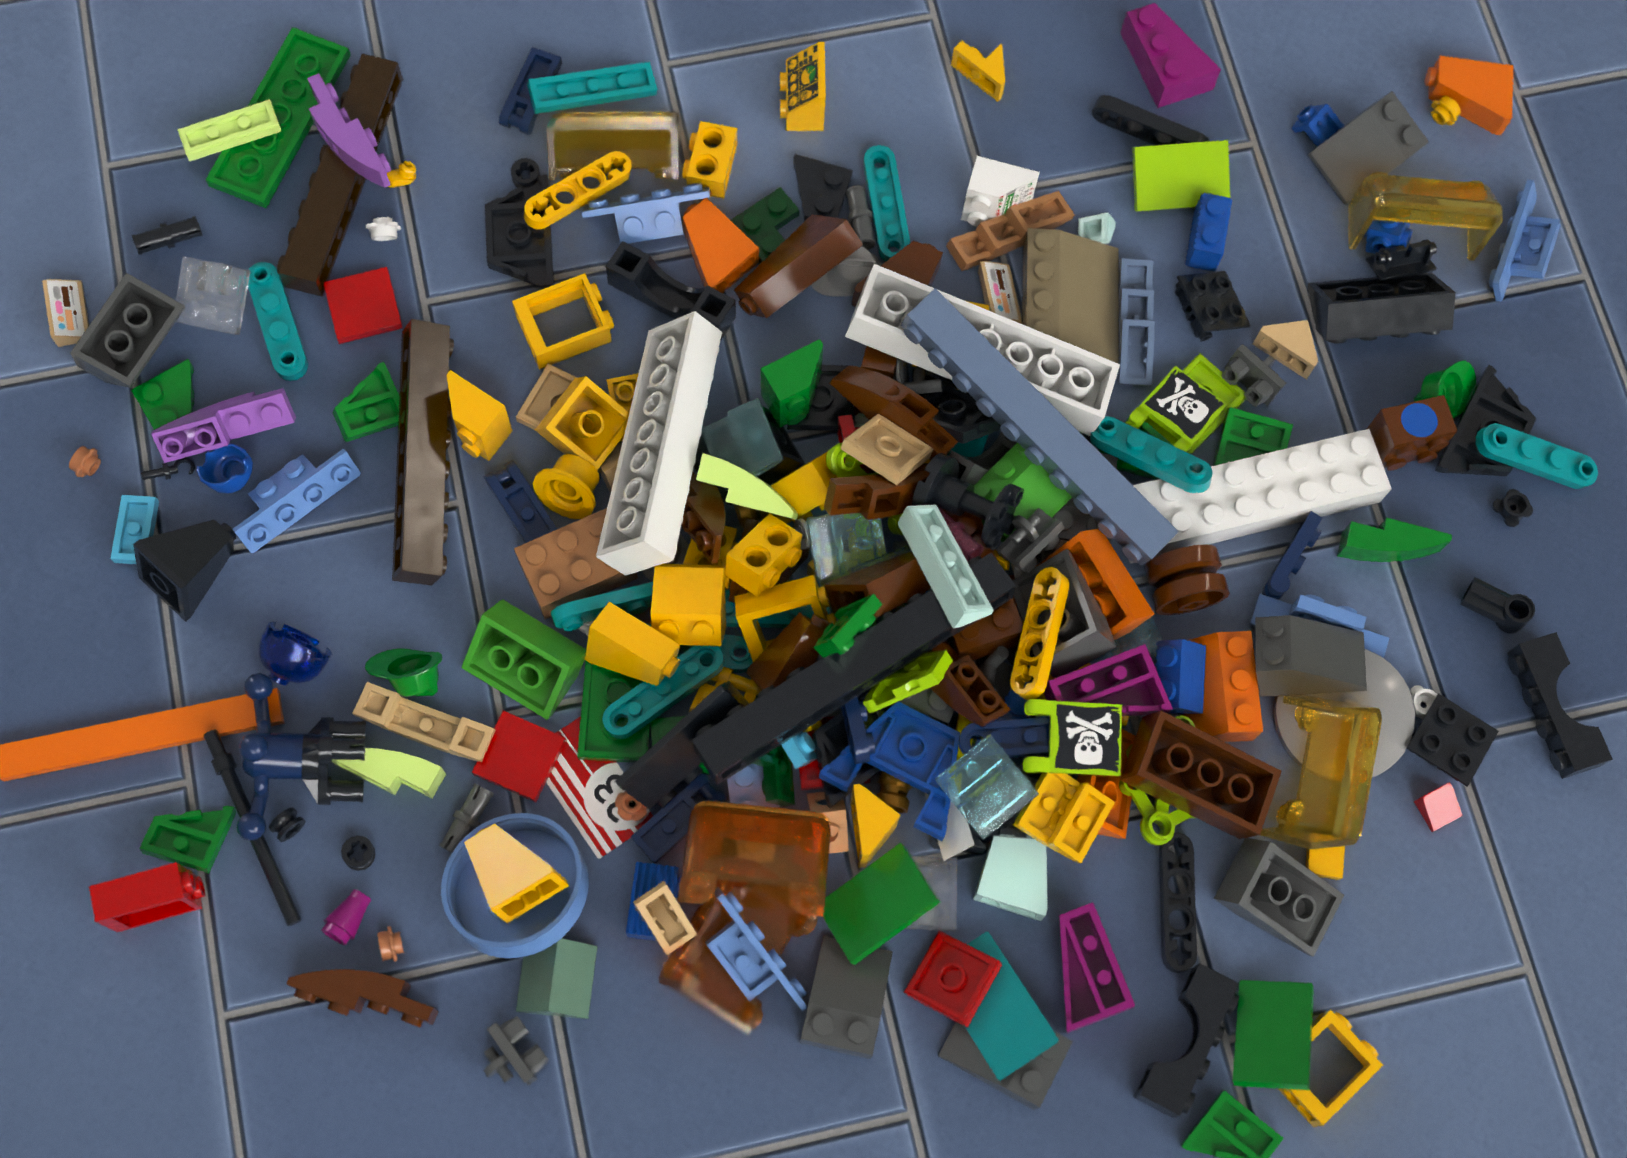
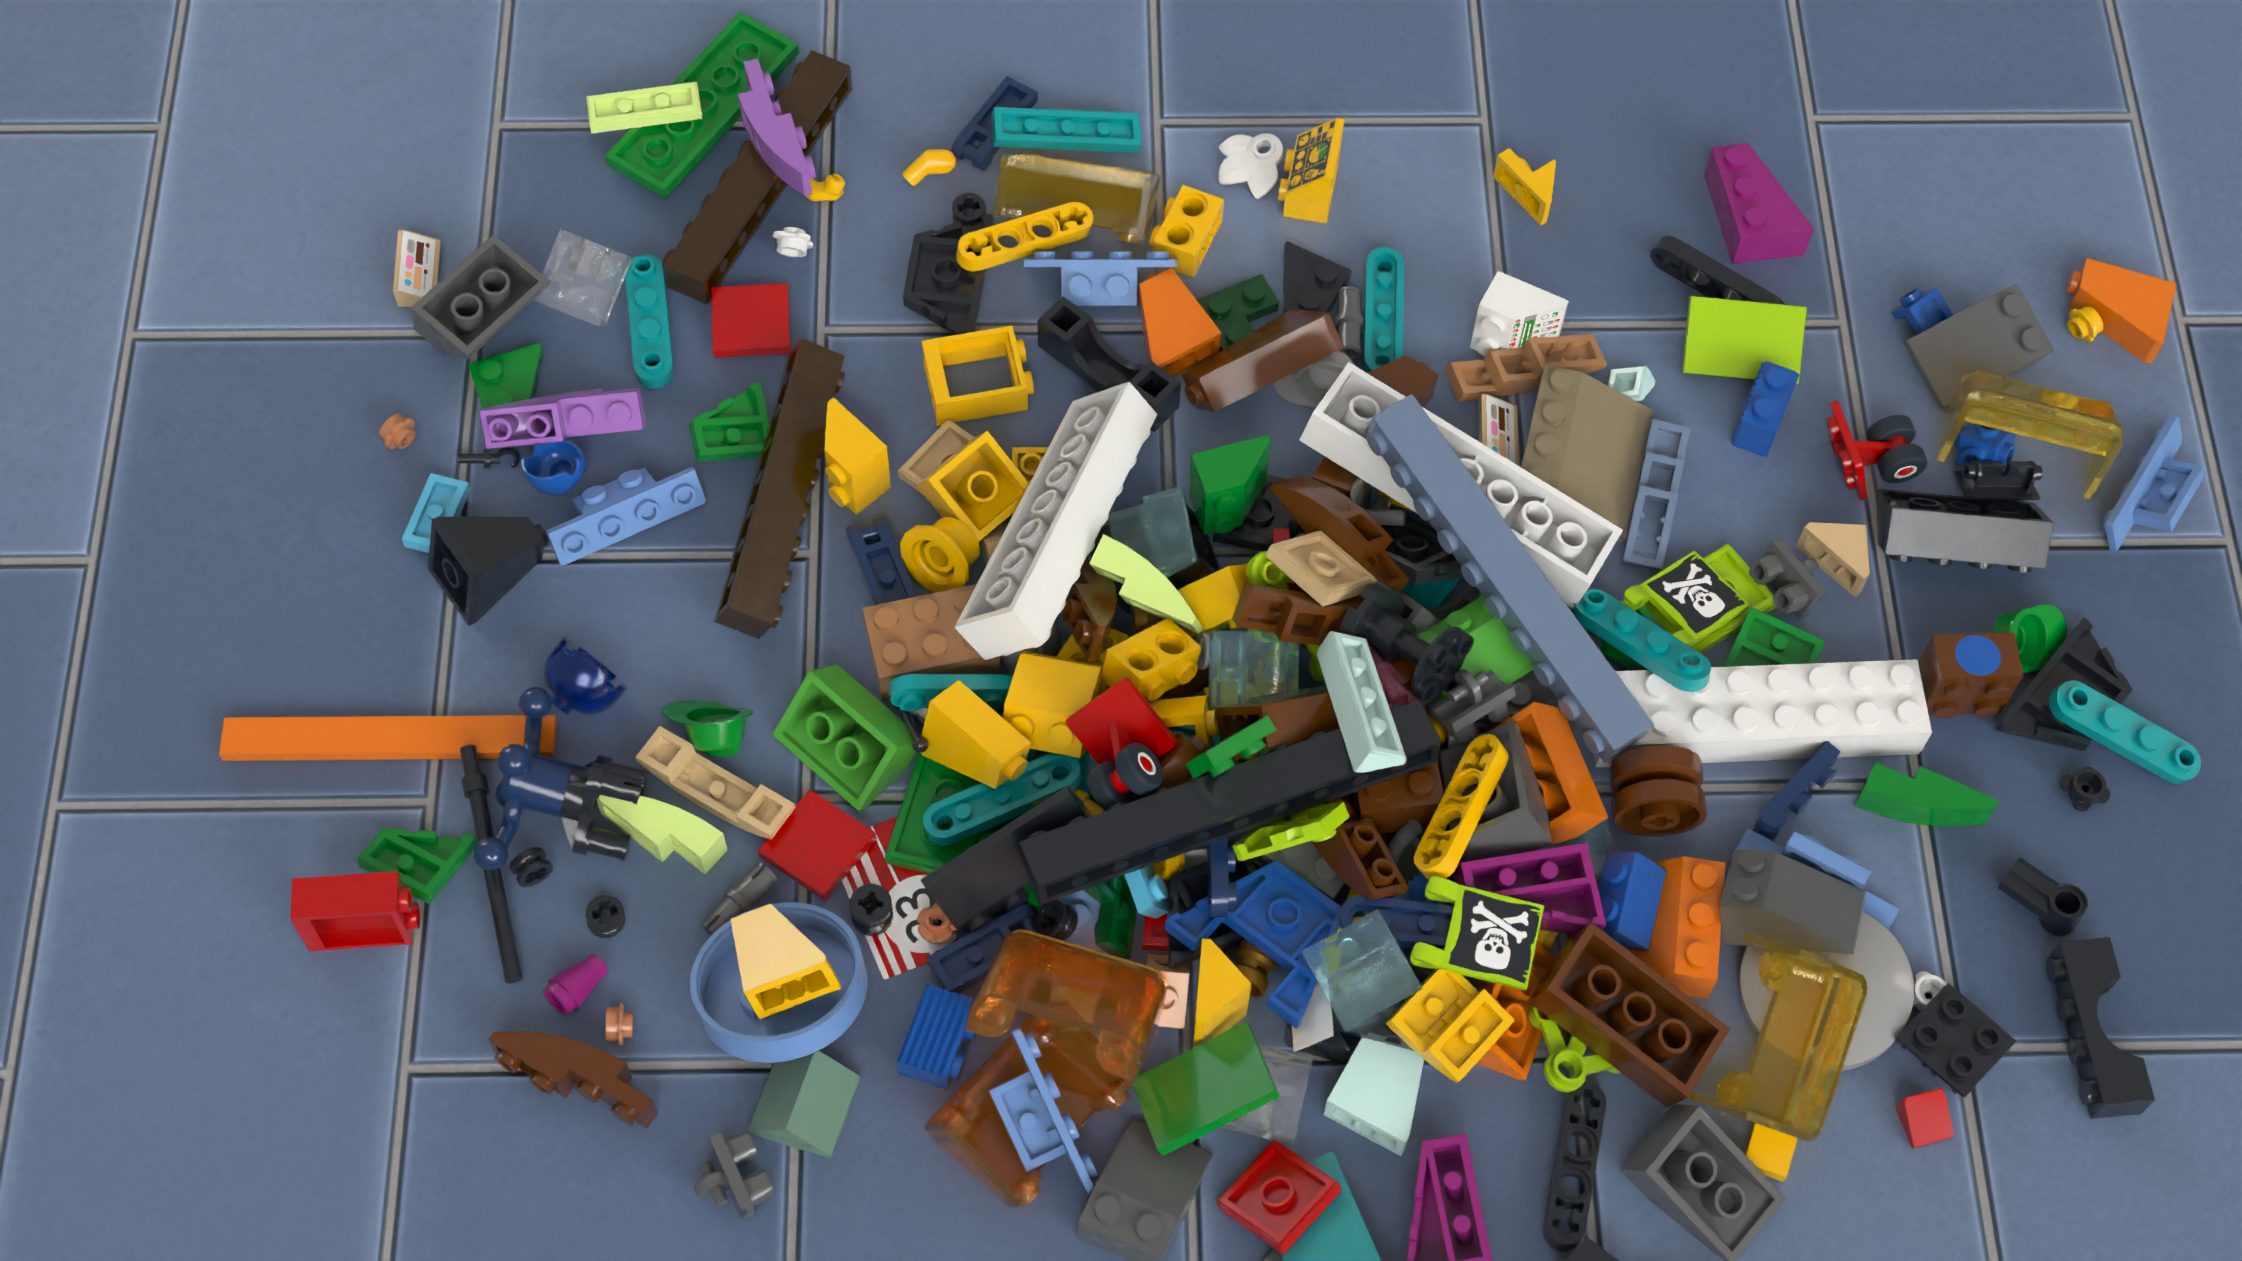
camera: 15 degrees right, 10 degrees down
(167, 235) = (547, 208): black pin -> none
(484, 136) = (930, 162): none -> yellow arm
(577, 811) = (872, 920): none -> black wheel
(586, 657) = (919, 743): none -> black hinge
(664, 918) = (945, 1047): tan slope -> none
(738, 788) = (1056, 920): none -> black bush
(748, 91) = (1249, 165): none -> white plate
(759, 631) = (1124, 741): none -> red plate
(1210, 303) = (1752, 489): black hinge -> none
(1309, 246) = (1886, 445): none -> plate

